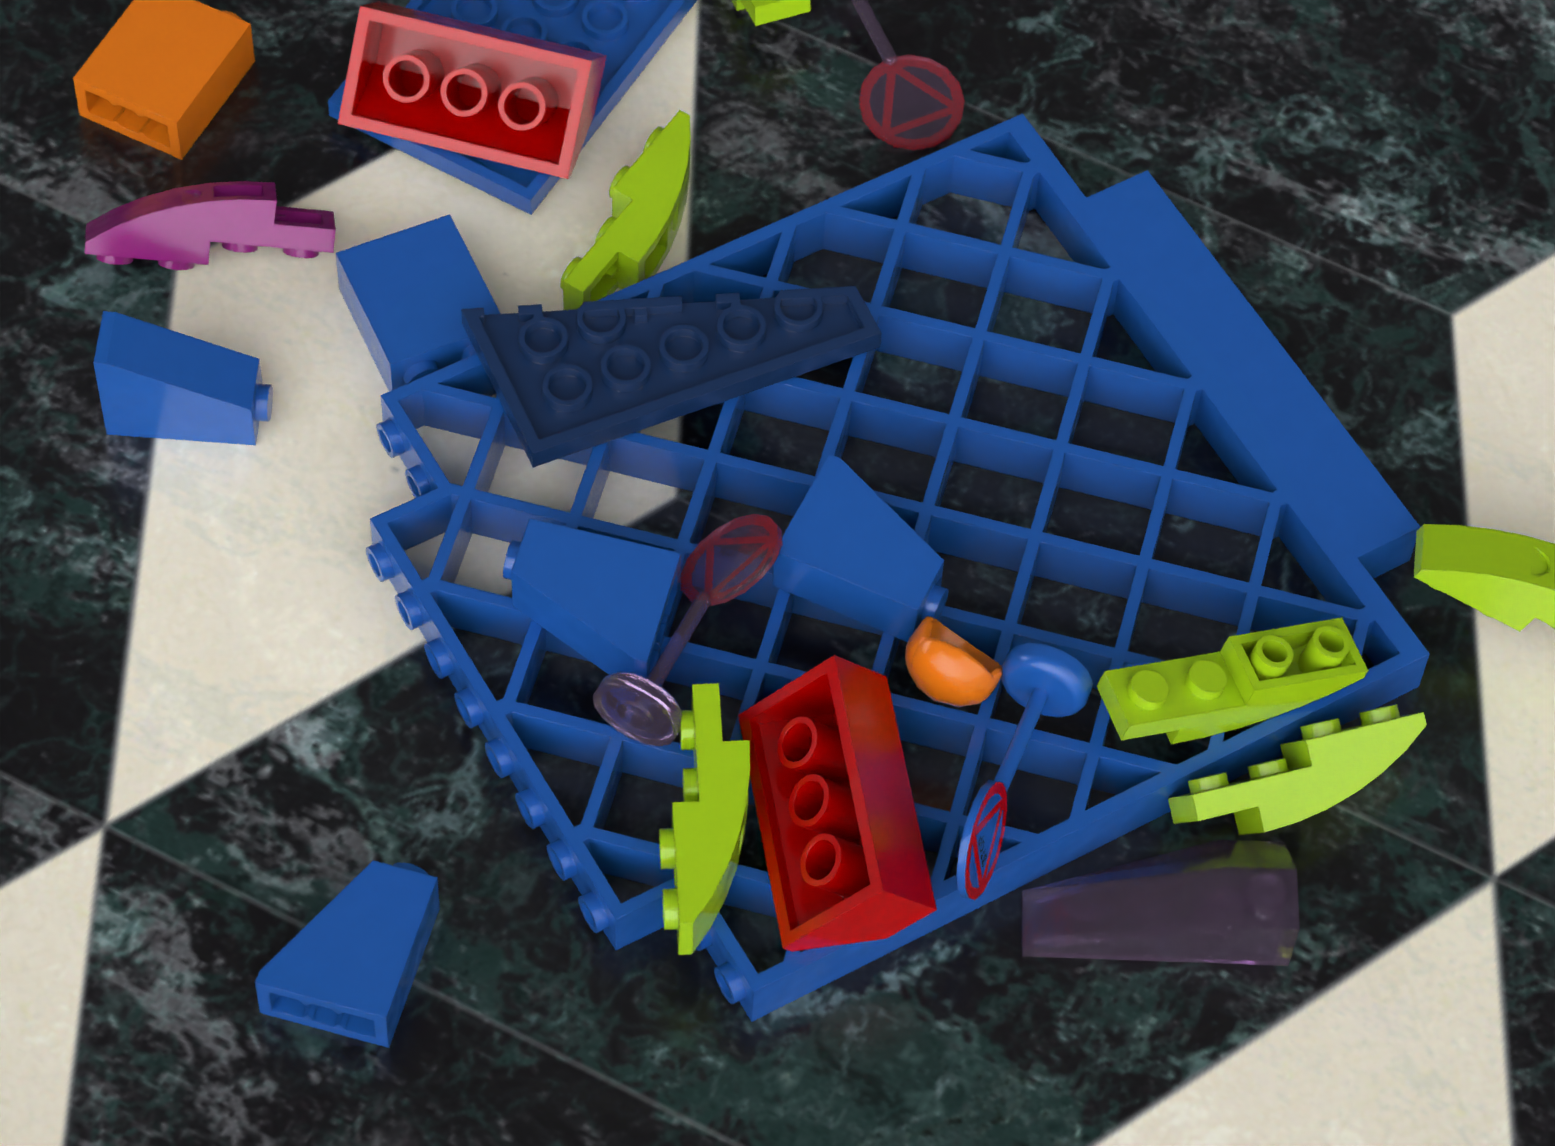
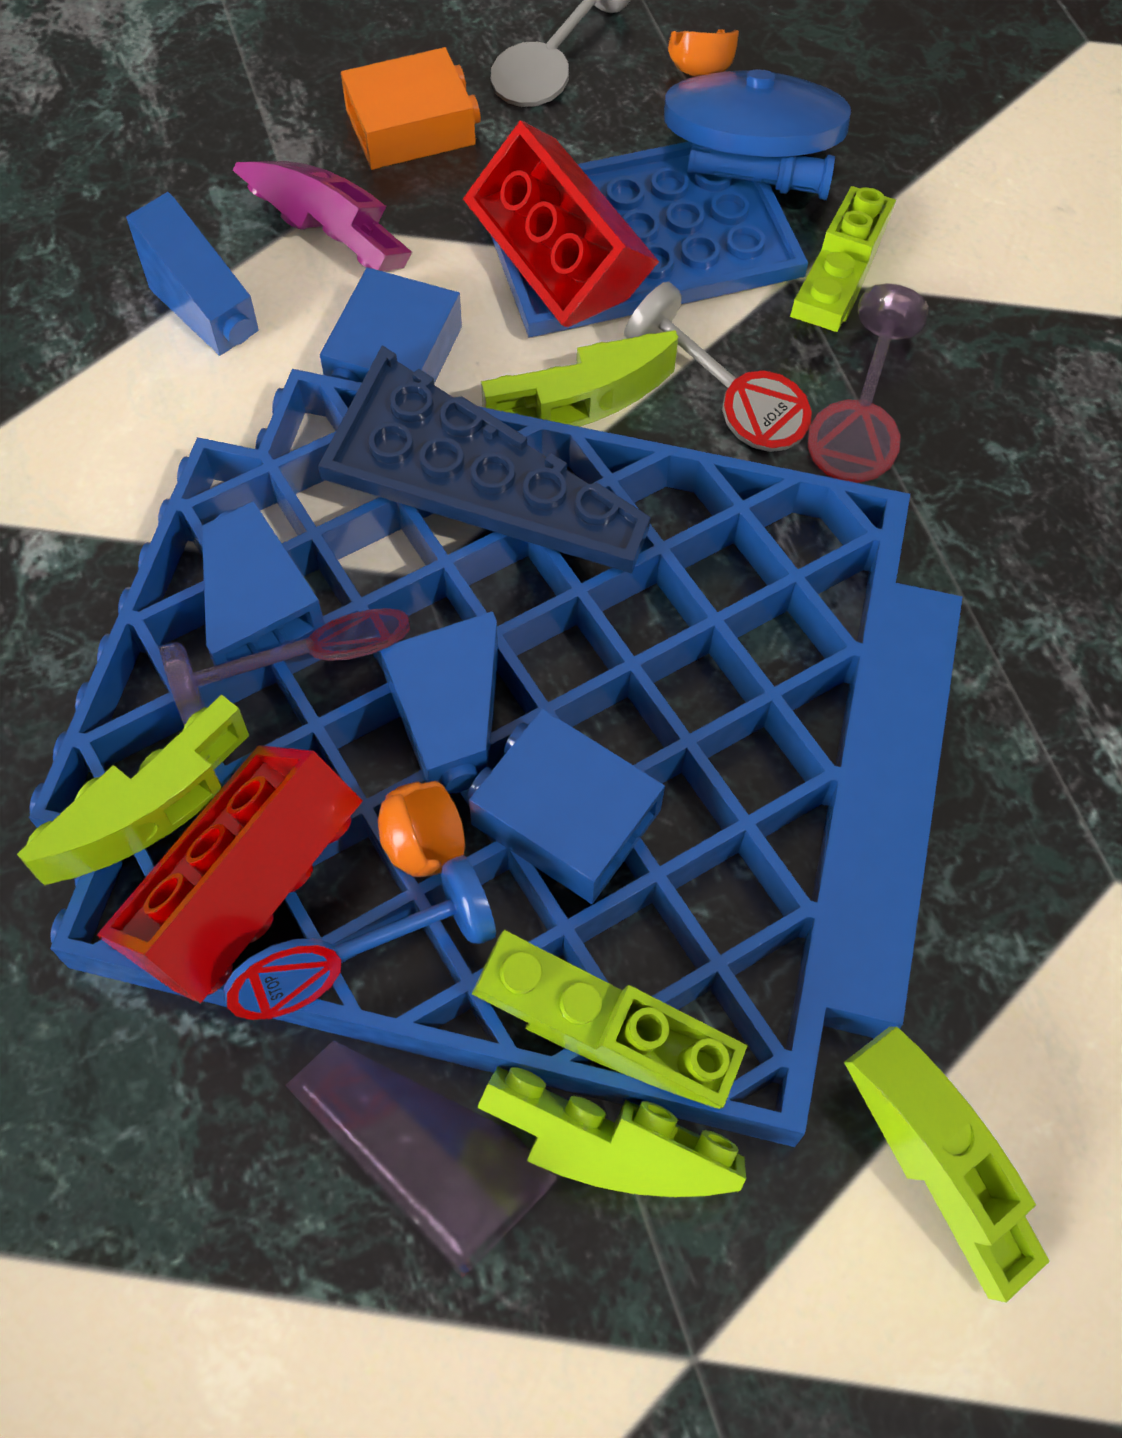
camera: 45 degrees right, 5 degrees up
(799, 124) = (758, 406): none -> light grey piece
(1033, 560) = (565, 804): none -> blue brick

